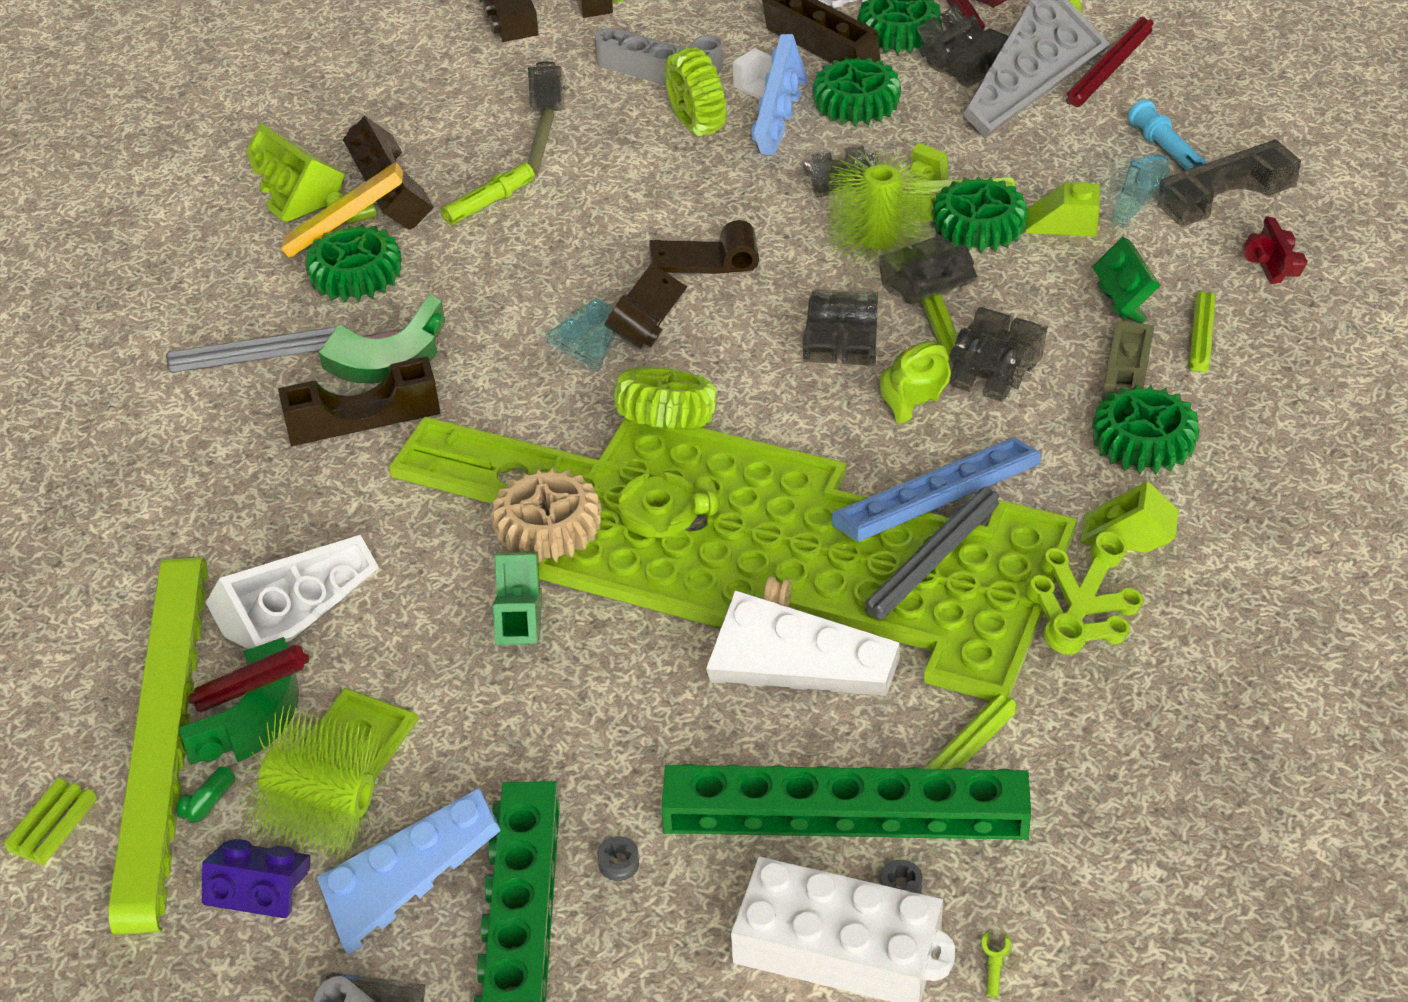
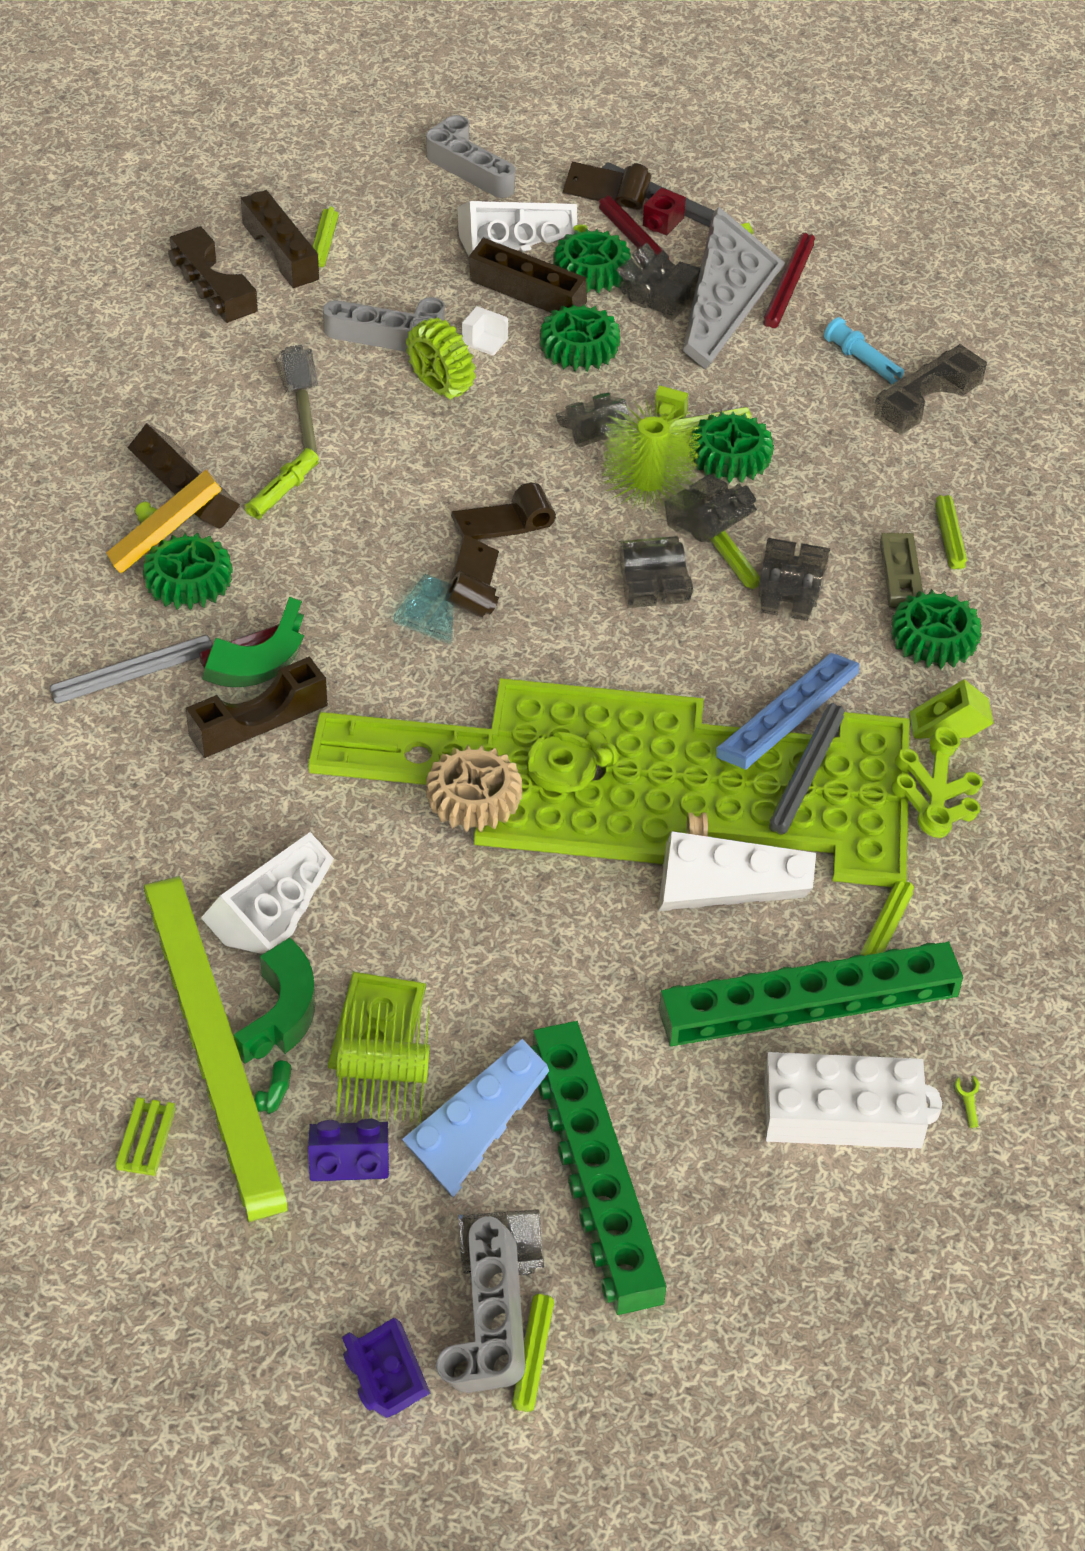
camera: 20 degrees left, 5 degrees up
(249, 678) = (283, 980): dark red axle -> none
(291, 174) = (91, 491): lime wedge -> none
(518, 598) = (474, 867): brick -> none
(618, 871) = (633, 1076): dark grey bush -> none
(665, 397) = (531, 662): lime gear -> none
(780, 91) = (514, 341): light blue wing -> none
(902, 868) = (875, 1039): dark grey bush -> none
(915, 378) = (733, 612): lime hair -> none
(1066, 211) = (805, 434): lime slope -> none
(1126, 279) = (879, 493): green bracket -> none
(1140, 186) = (863, 394): clear light blue wing -> none
(1274, 252) = (986, 448): dark red hips -> none

